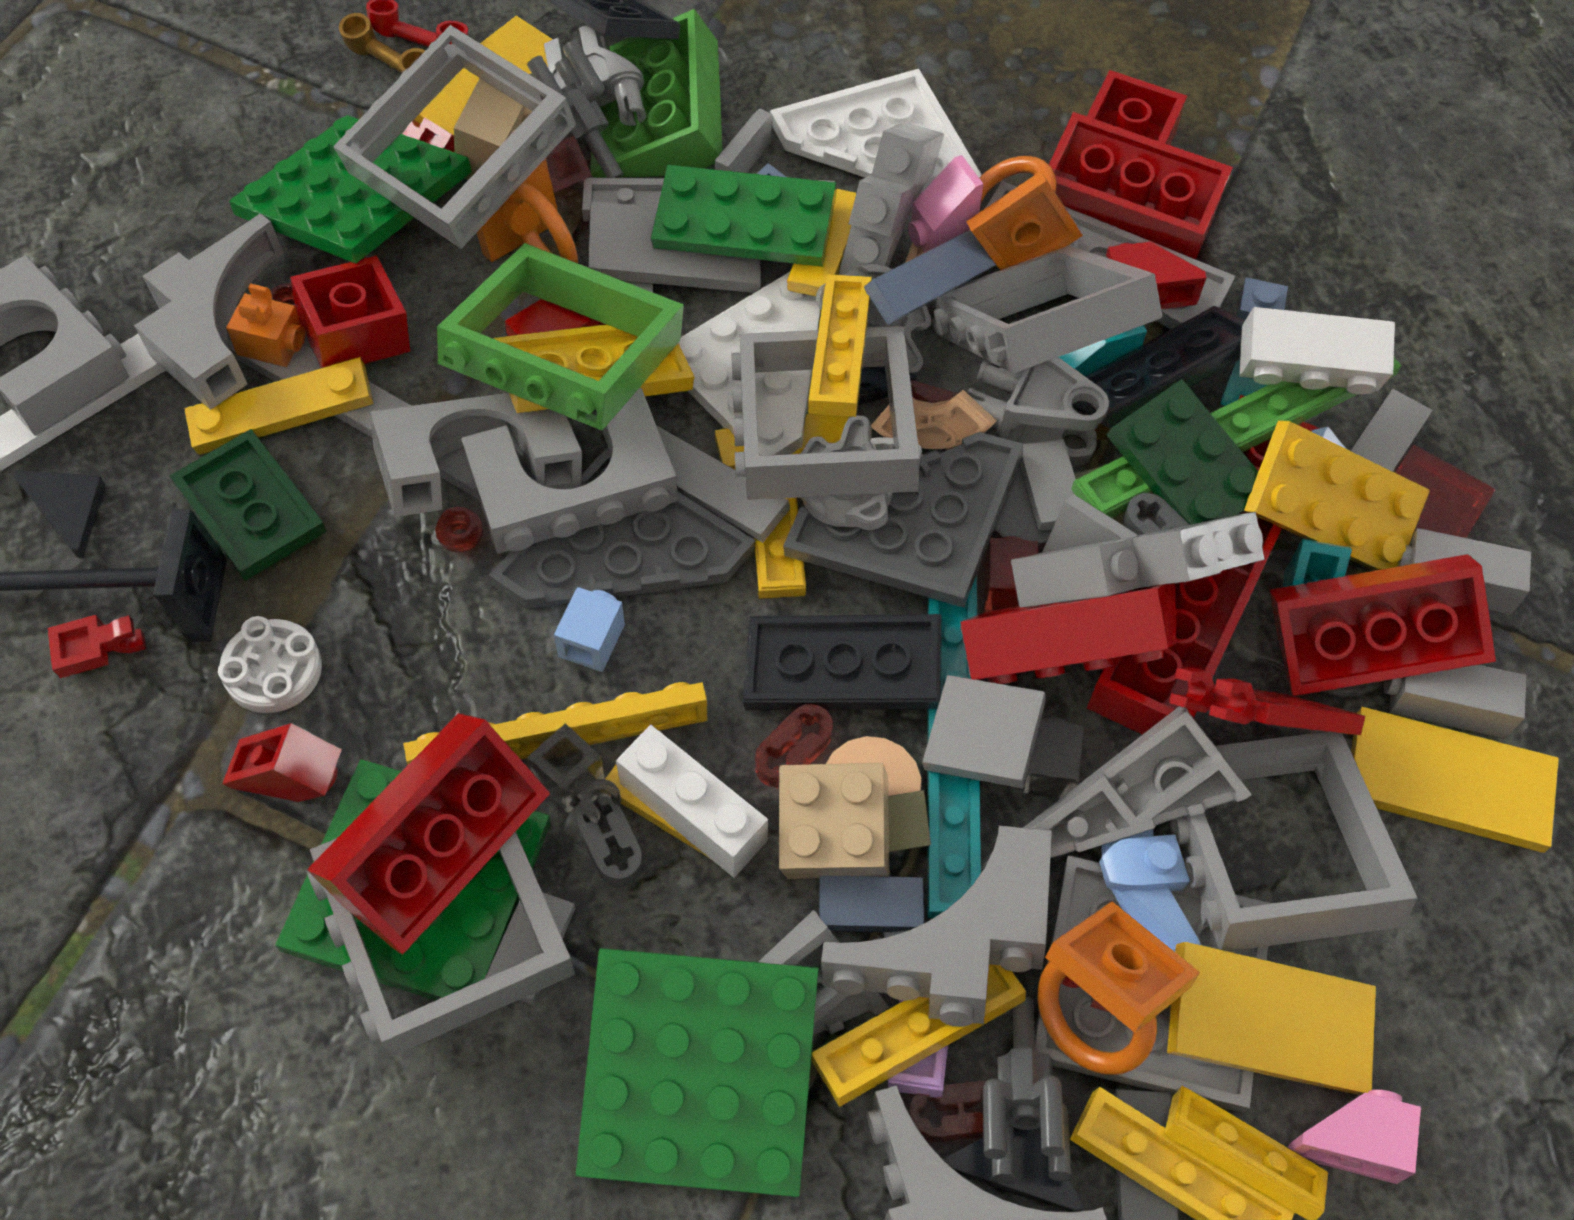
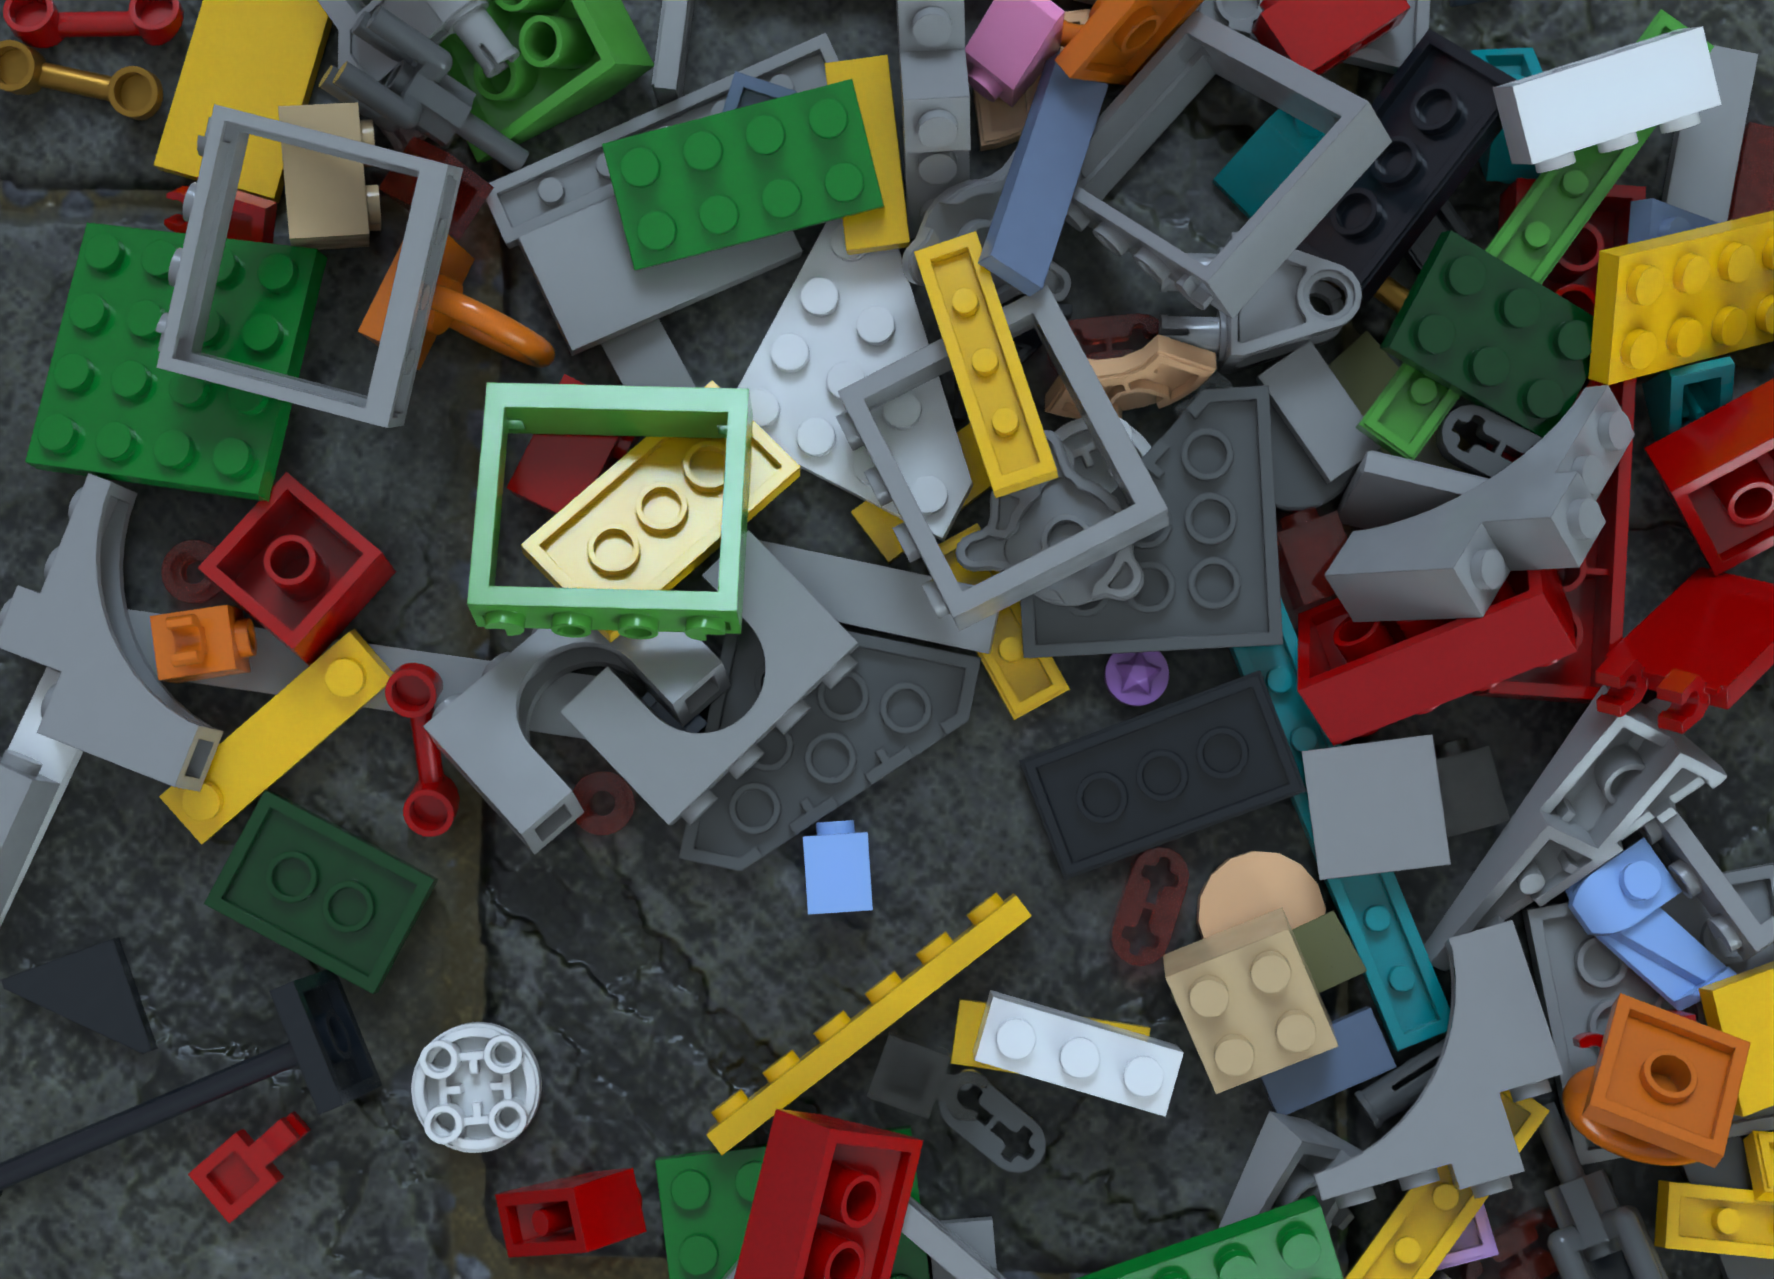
camera: 20 degrees left, 25 degrees up
(352, 485) = (412, 694): none -> red bar
(855, 597) = (1136, 677): none -> medium lavender tile

